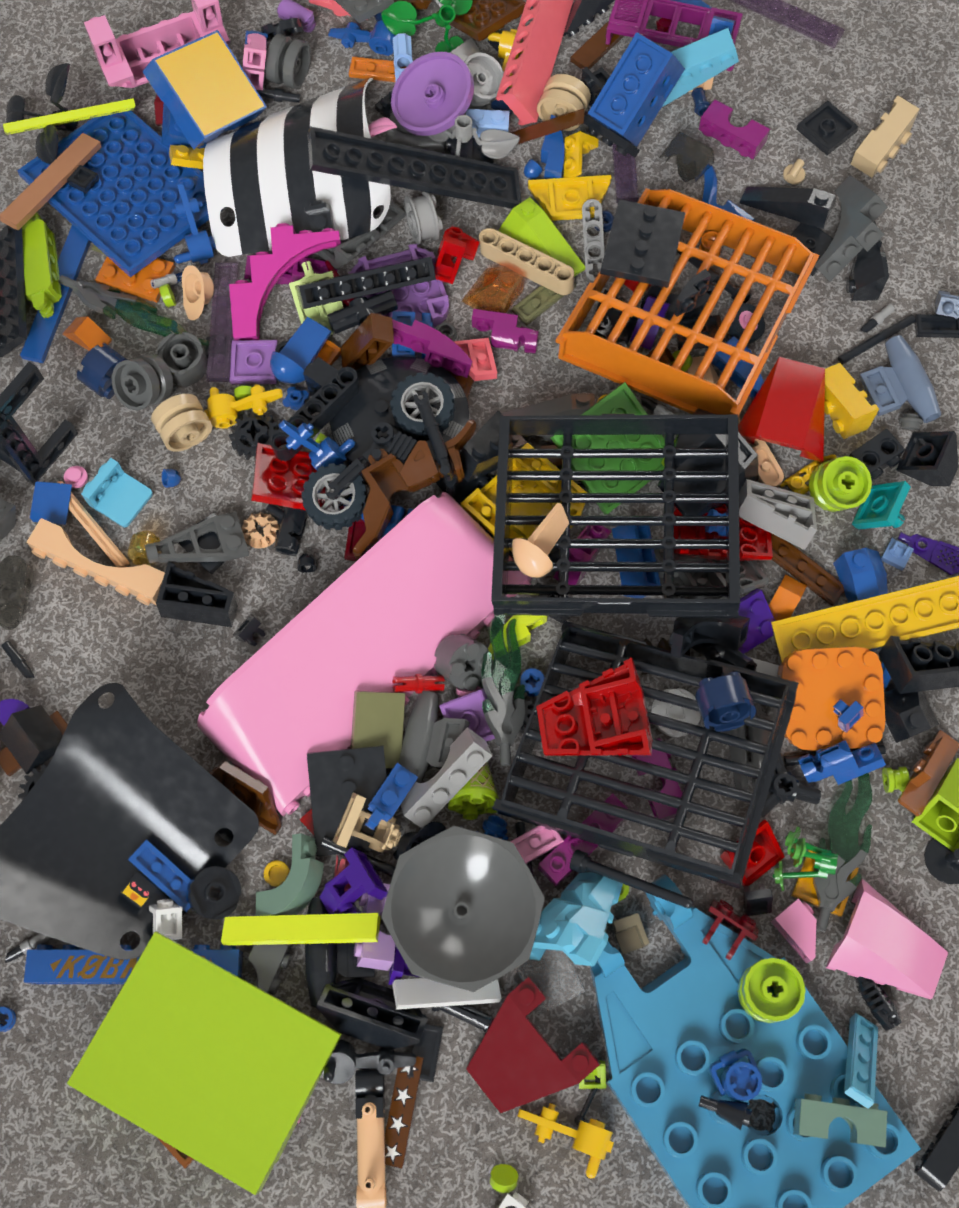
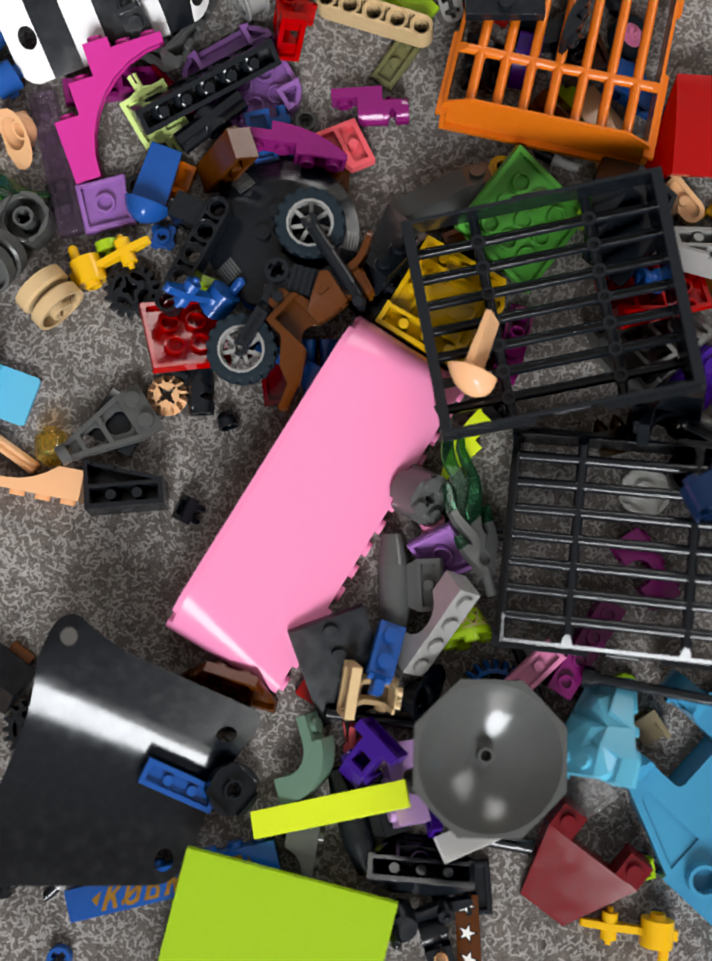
camera: 15 degrees left, 15 degrees up
(138, 890) = (156, 806): black tile -> none
(167, 918) = (192, 827): white bracket -> none
(170, 478) = (54, 360): blue hinge -> none
(276, 873) = (286, 751): yellow tile -> none
(379, 722) = (351, 579): olive tile -> none
(418, 683) = (380, 529): red pin -> none
(495, 290) = (346, 59): clear orange slope -> none
(495, 824) = (491, 654): blue plate -> none
(532, 687) = (491, 498): blue wheel -> none
(587, 1104) = (638, 911): black hinge -> none
(598, 717) = (581, 535): red wedge -> none
(636, 555) = (572, 343): blue brick -> none

